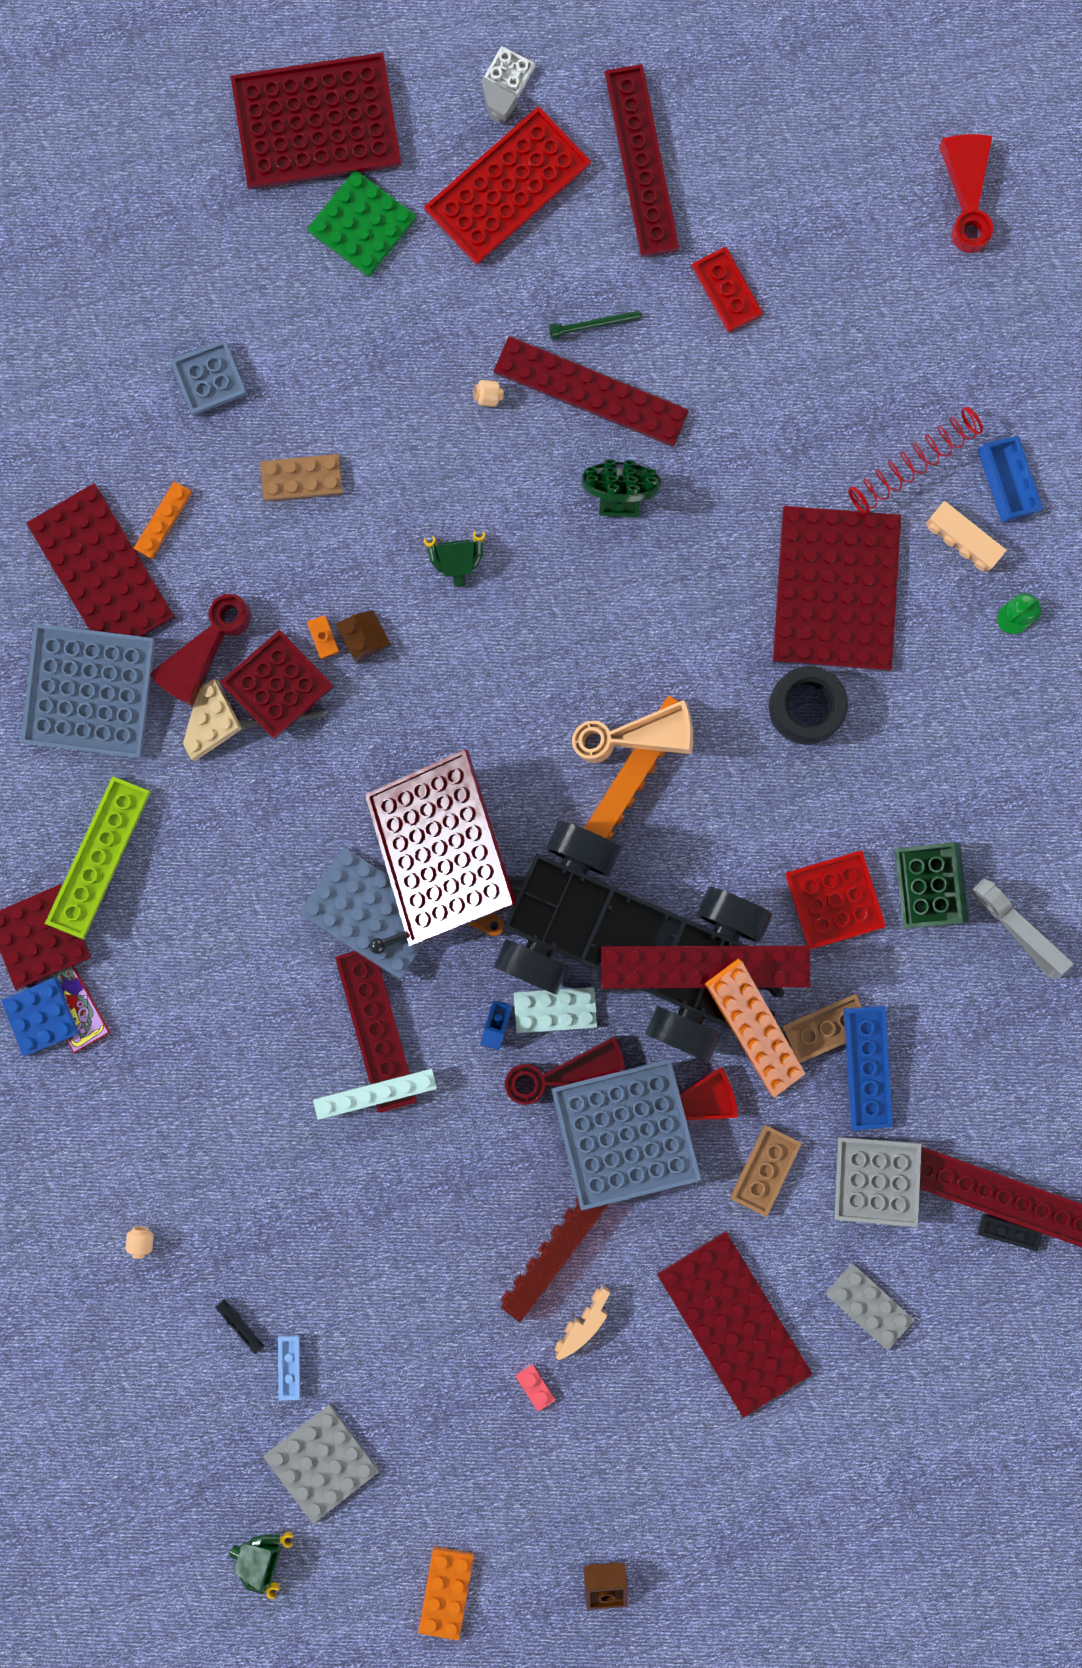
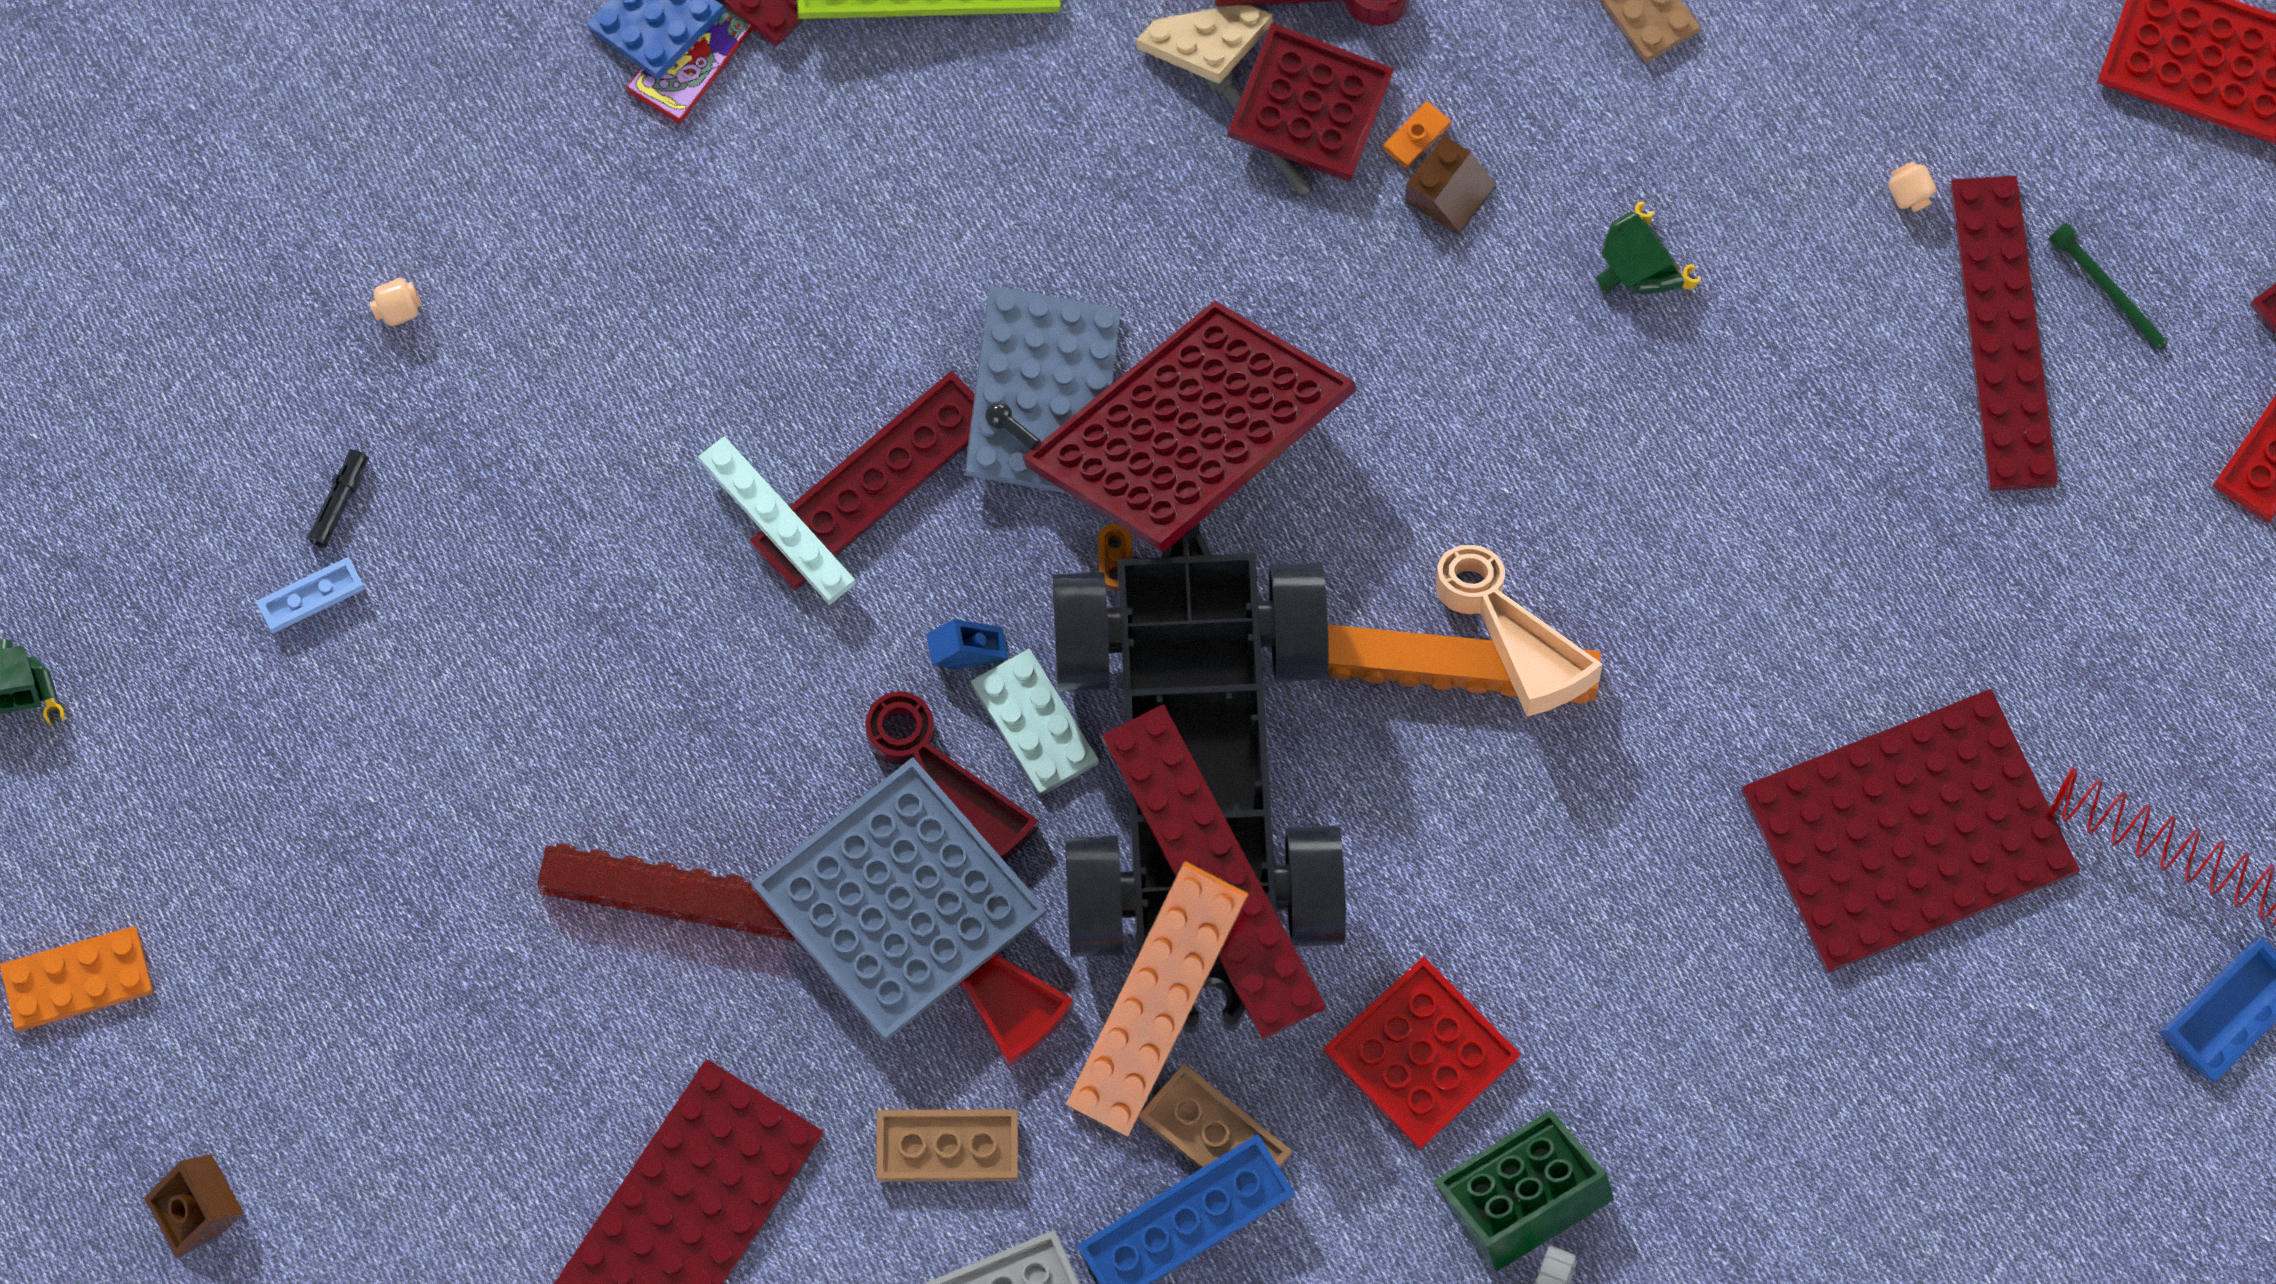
camera: 65 degrees right, 15 degrees down
(321, 1463) = (188, 709): light grey plate -> none
(535, 1387) = (447, 962): coral plate -> none
(581, 1331) = (563, 985): light nougat slope -> none
(620, 488) = (1875, 432): dark green bracket -> none
(828, 685) = (1714, 819): black tyre -> none
(965, 537) = (2100, 982): light nougat brick -> none
(1019, 613) = (2029, 1127): green piece -> none

